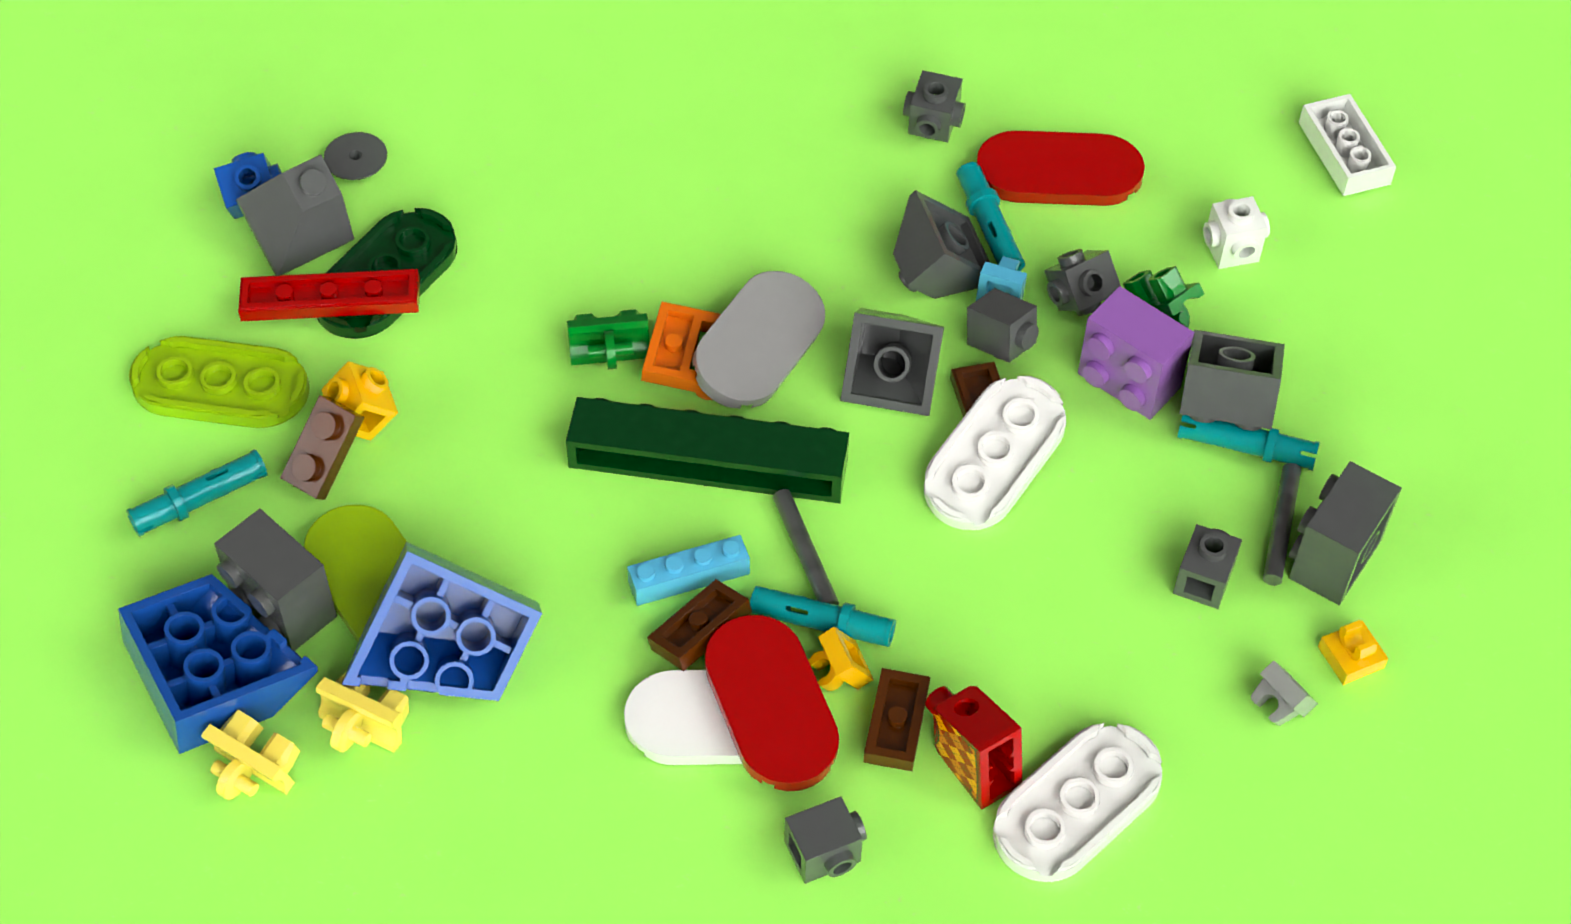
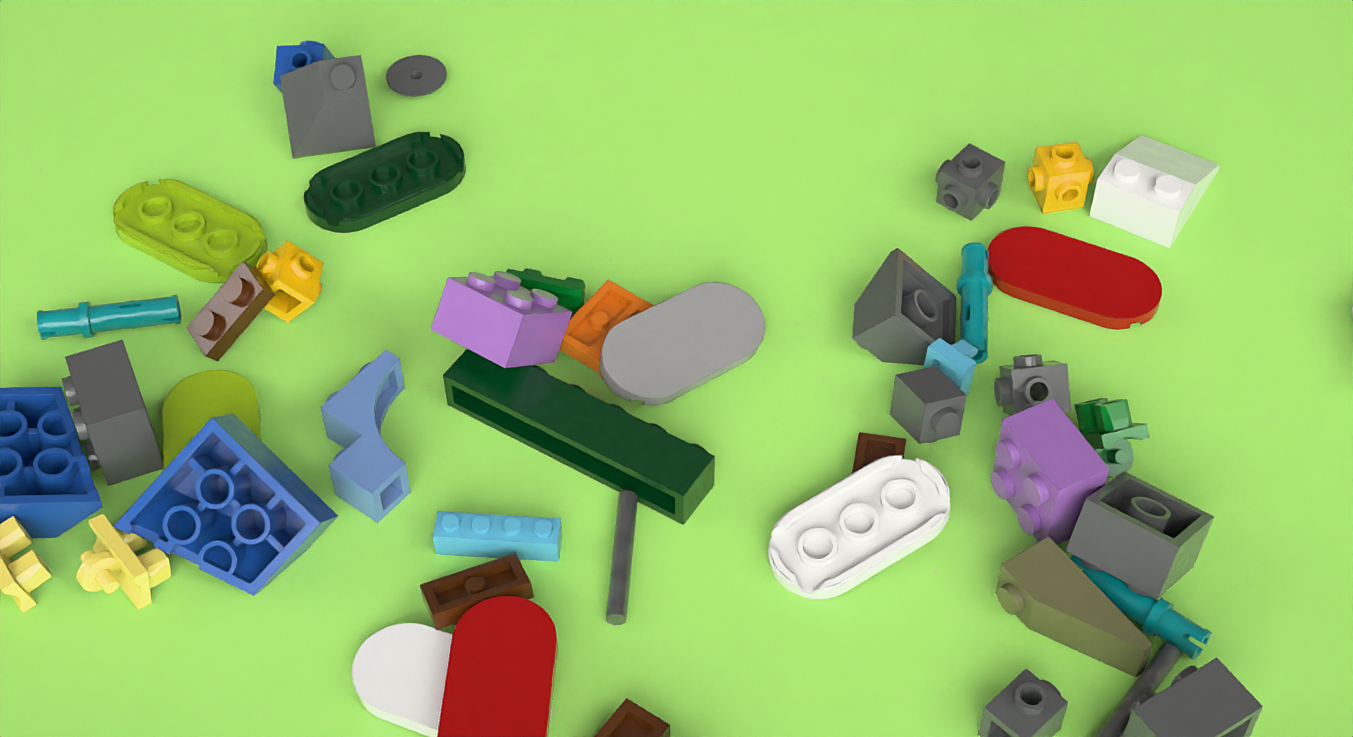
camera: 25 degrees right, 5 degrees down
(329, 295) = (320, 184): red tile -> none
(538, 551) = (366, 469): none -> medium blue arch
(598, 370) = (501, 319): none -> medium lavender brick
(823, 615) = (616, 637): teal pin -> none
(844, 660) = (594, 676): yellow tile -> none
(892, 362) = (797, 403): dark grey slope -> none
(1009, 77) = (1060, 177): none -> yellow brick
(1090, 64) = (1151, 189): none -> white slope
(1197, 461) = (1066, 606): none -> olive slope
(1236, 232) = (1223, 391): white brick -> none

